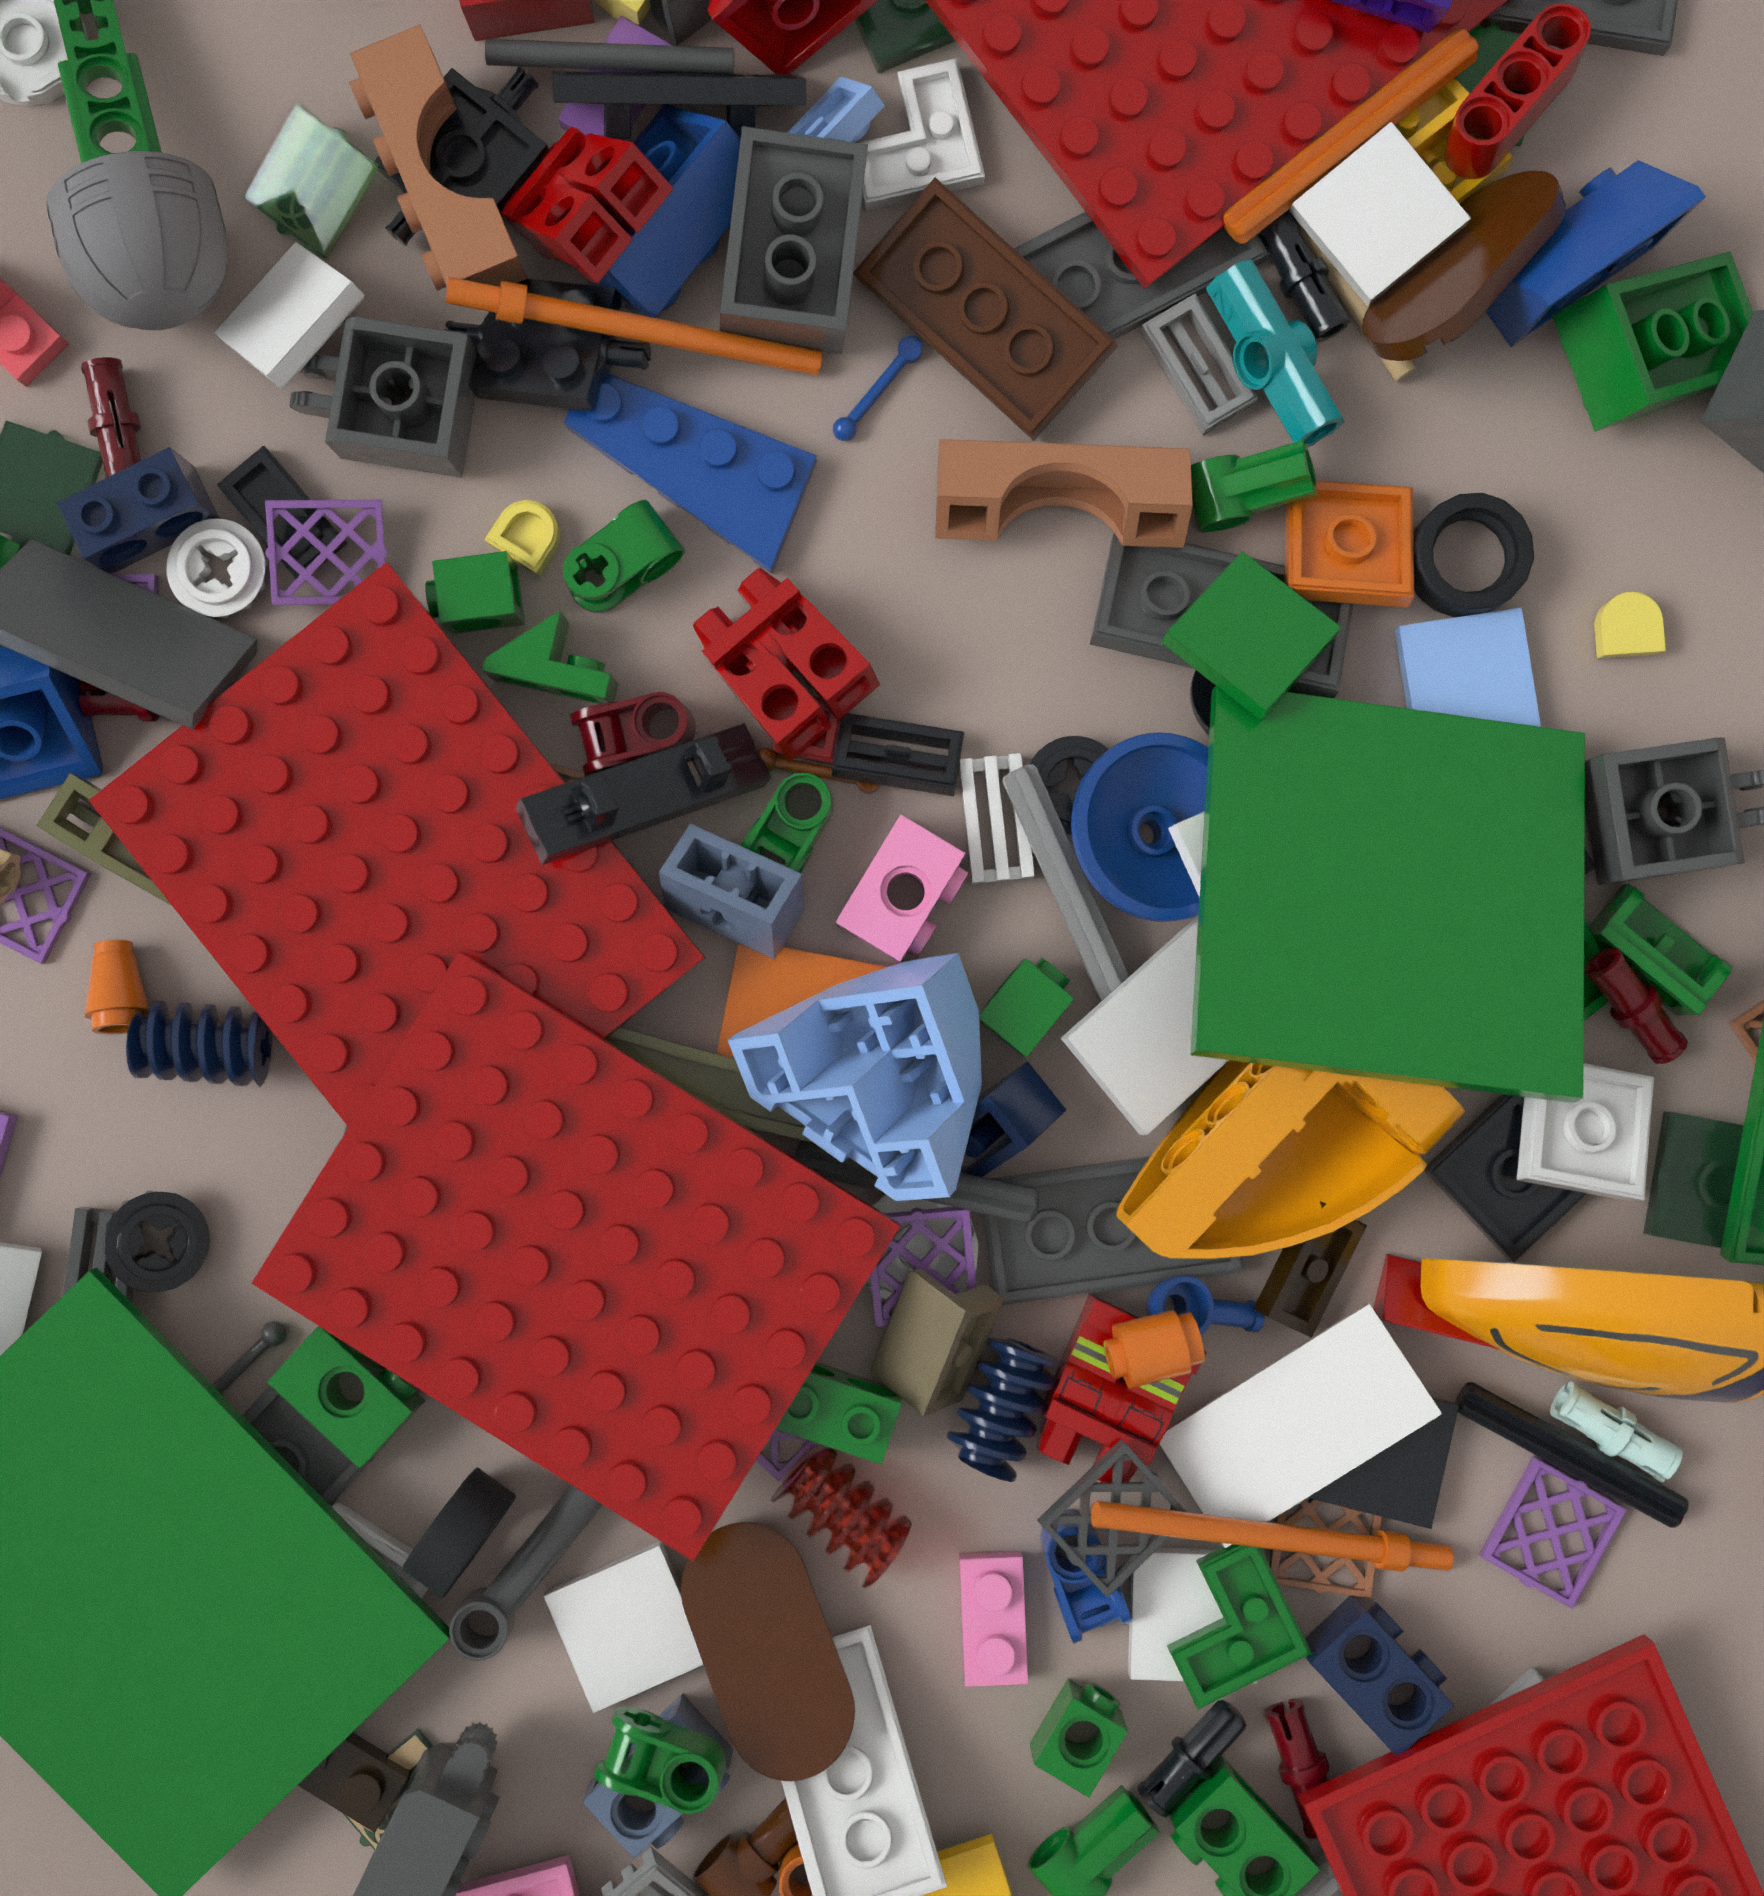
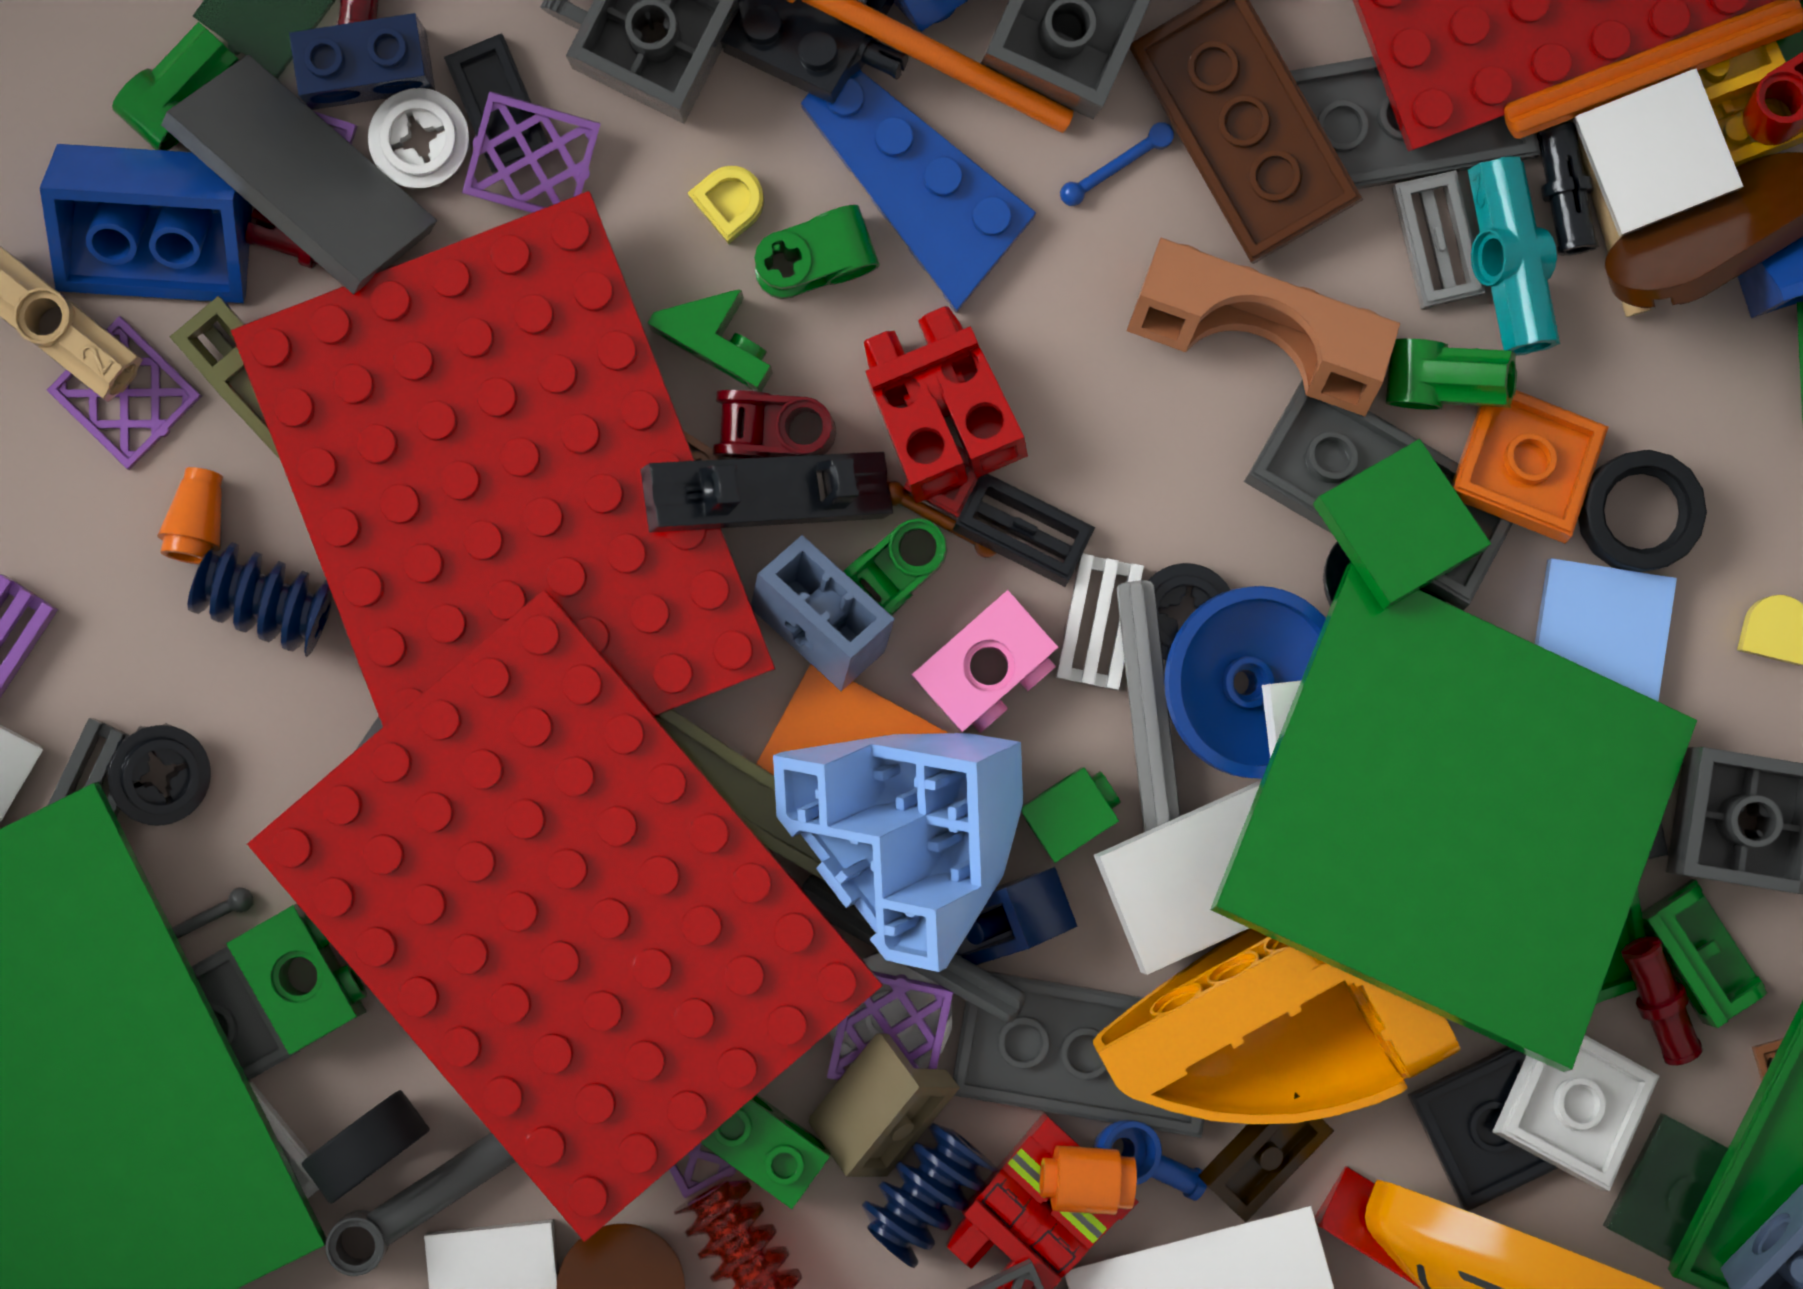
camera: 15 degrees right, 0 degrees up
(476, 592) = (663, 243): green brick -> none

